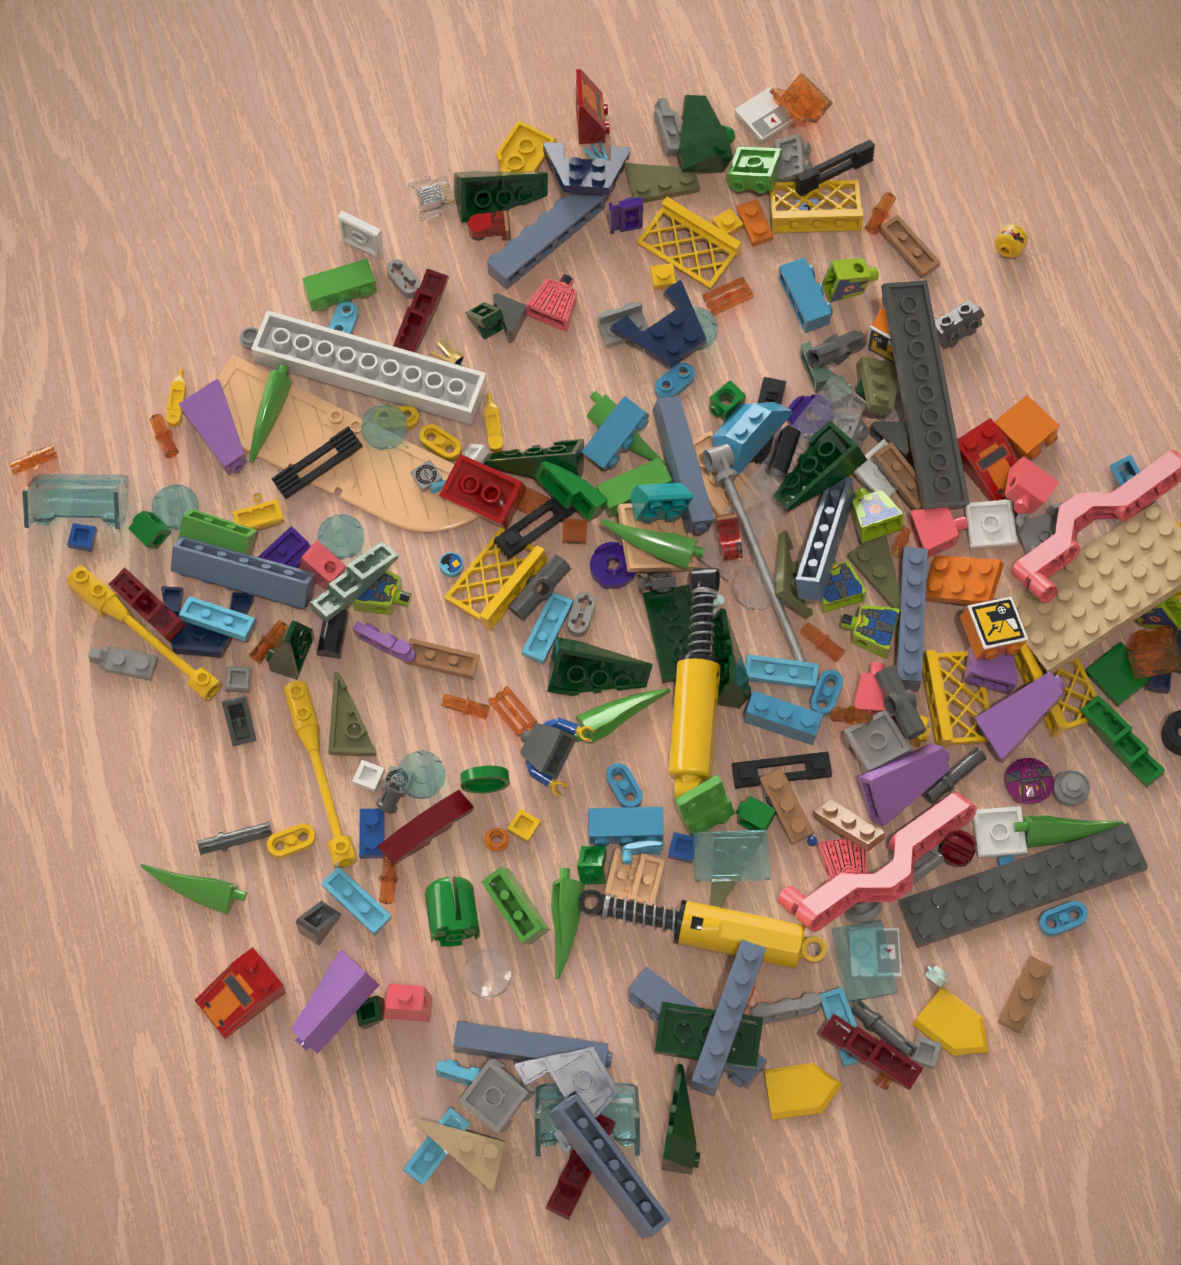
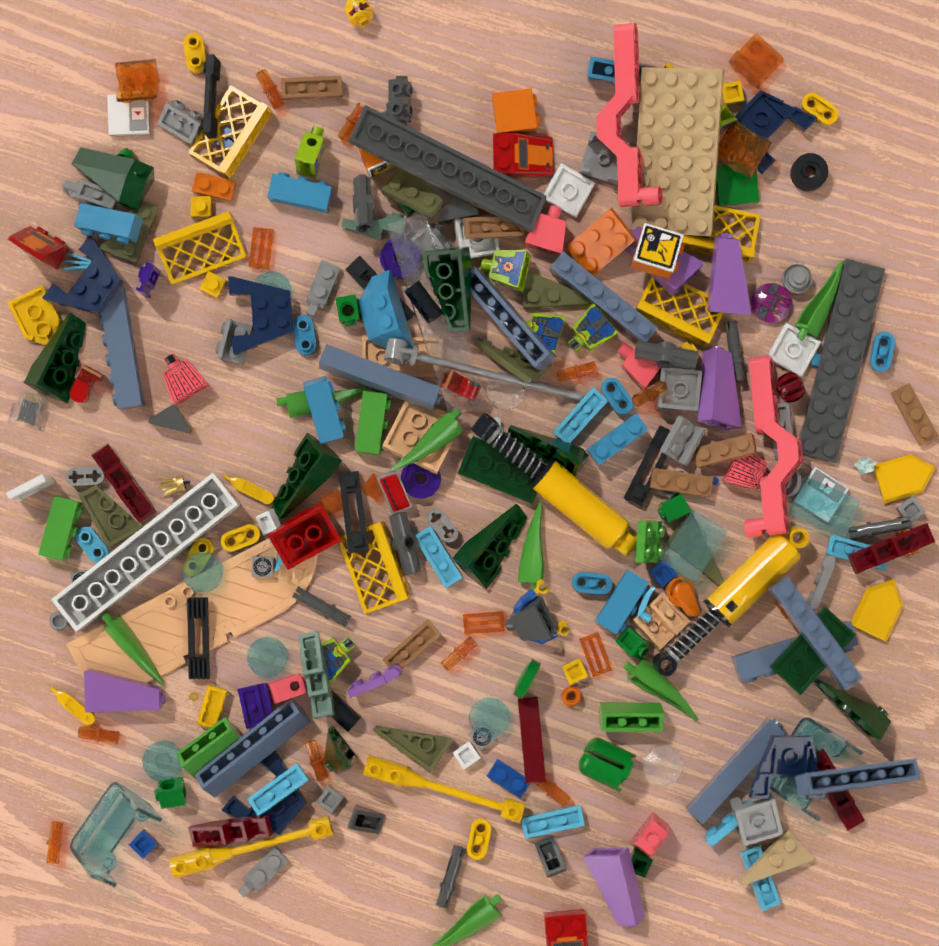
camera: 55 degrees left, 20 degrees up
(380, 315) = (109, 518): none -> olive wing
(390, 797) = (494, 751): dark grey bush -> none
(424, 553) = (321, 606): none -> dark grey pin
(451, 564) = (342, 592): tile -> none
(486, 319) = (160, 439): dark green slope -> none
(542, 853) = (601, 670): none -> clear orange tile
(571, 490) = (347, 471): green slope -> none
(583, 547) = (394, 492): none -> red slope
(653, 153) = (108, 223): none -> dark azure brick
(660, 501) = (401, 416): teal slope -> none
(660, 580) = (458, 458): dark grey plate -> none
(674, 880) = (683, 595): none -> orange piece
(730, 368) = (322, 287): none -> light grey hinge
(754, 169) = (171, 156): bright green plate -> none
(828, 779) = (682, 441): none -> light grey bracket
(864, 132) = (194, 52): none -> yellow plate
(901, 542) = (540, 263): clear orange tile -> none
(1028, 486) = (563, 145): coral torso -> none
(1121, 741) = (787, 219): green slope -> none

